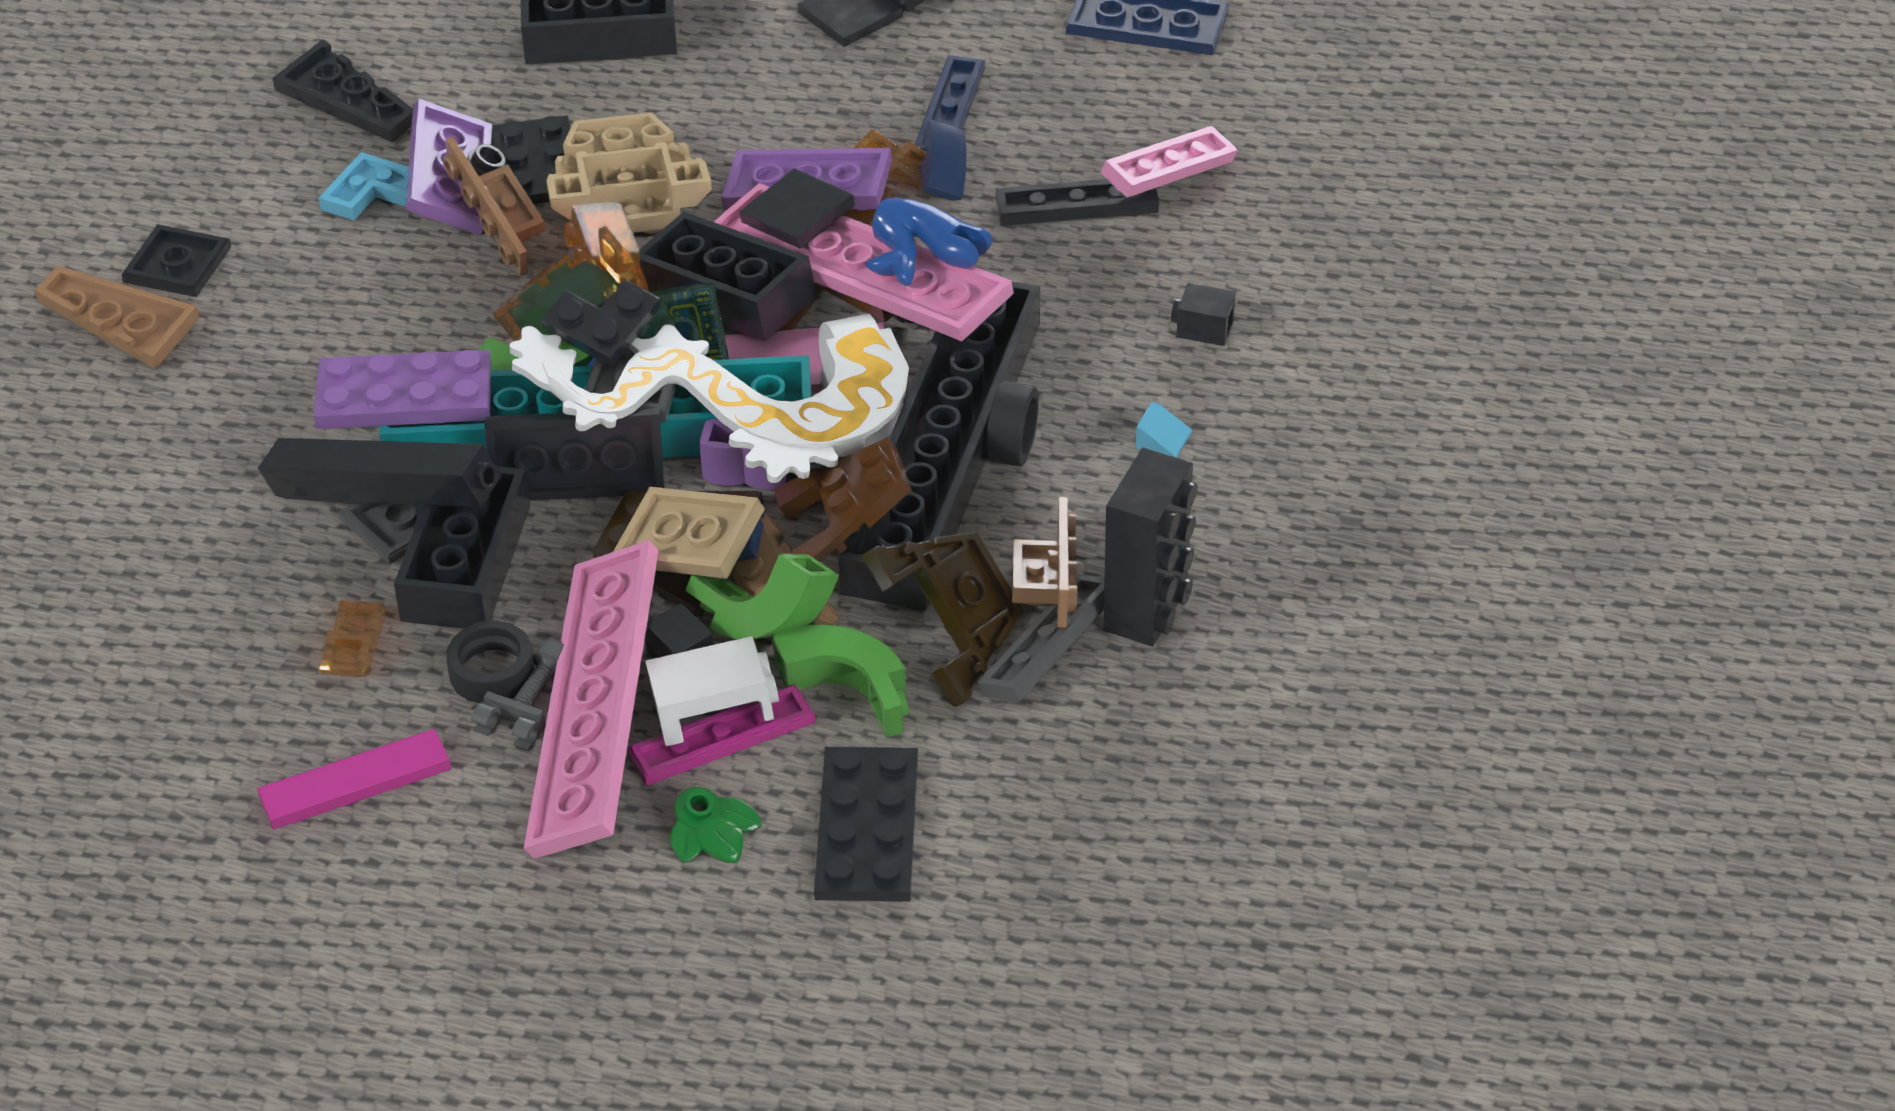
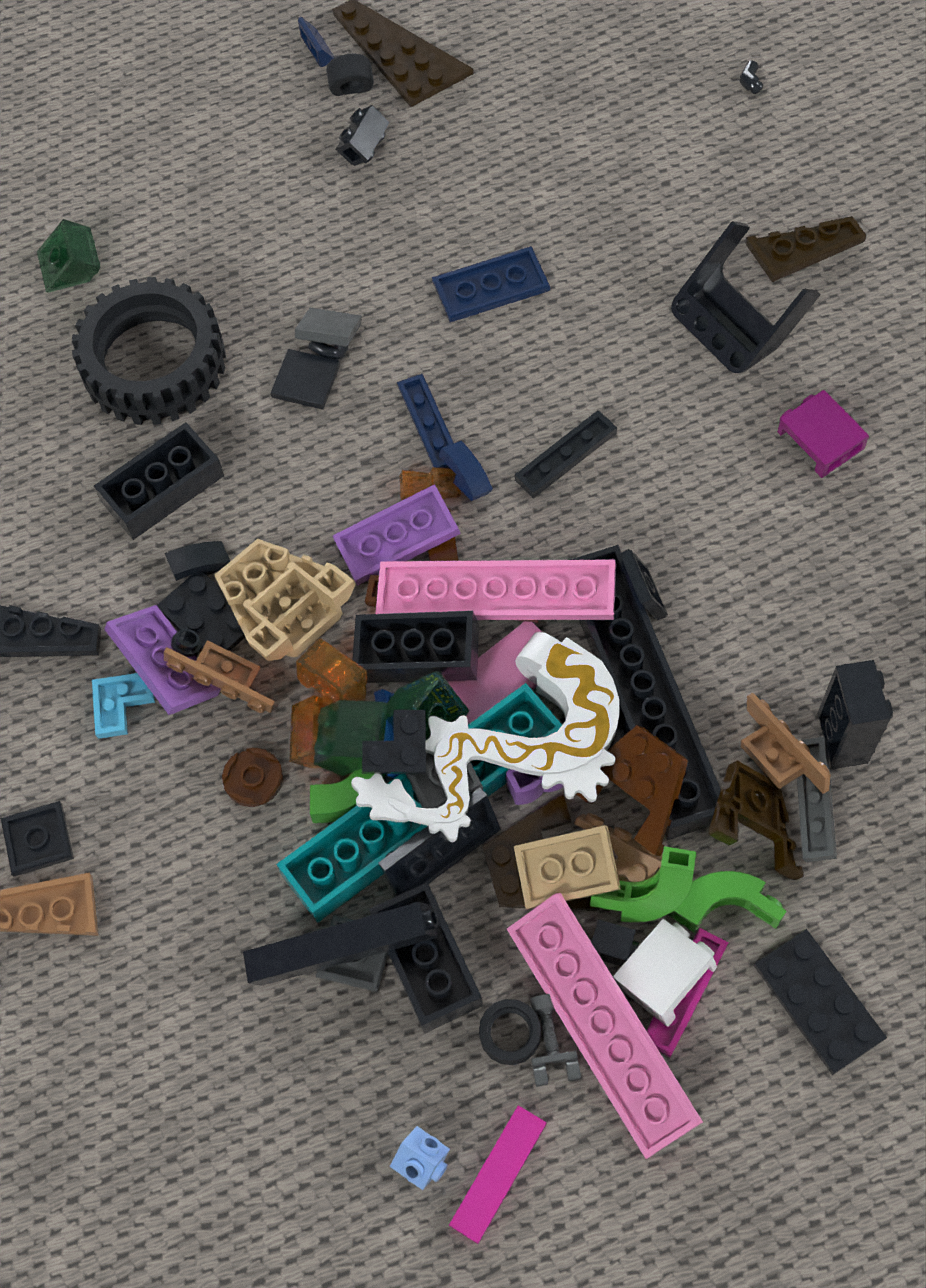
camera: 30 degrees left, 20 degrees up
(283, 708) = (420, 1158): none -> light blue brick
(354, 639) = (409, 1069): clear orange slope -> none
(403, 389) = (301, 870): medium lavender plate -> none
(445, 328) = (253, 787): none -> reddish brown tile
(570, 101) = (197, 557): none -> black slope
(619, 260) = (367, 690): clear orange slope -> none
(714, 830) = (741, 1065): green plate -> none
(797, 208) = (428, 573): black tile -> none
(945, 235) = (549, 548): blue piece -> none
(1012, 423) = (678, 653): black tyre -> none
(1038, 341) = (644, 584): none -> black tile
(1161, 431) = (753, 603): medium azure slope -> none
(1168, 161) = (604, 396): bright pink plate -> none
(1204, 314) = (711, 500): black brick -> none
(1393, 151) = (725, 318): none -> black windscreen
(1407, 316) = (824, 432): none -> magenta panel
(1547, 140) = (803, 247): none -> dark brown wing

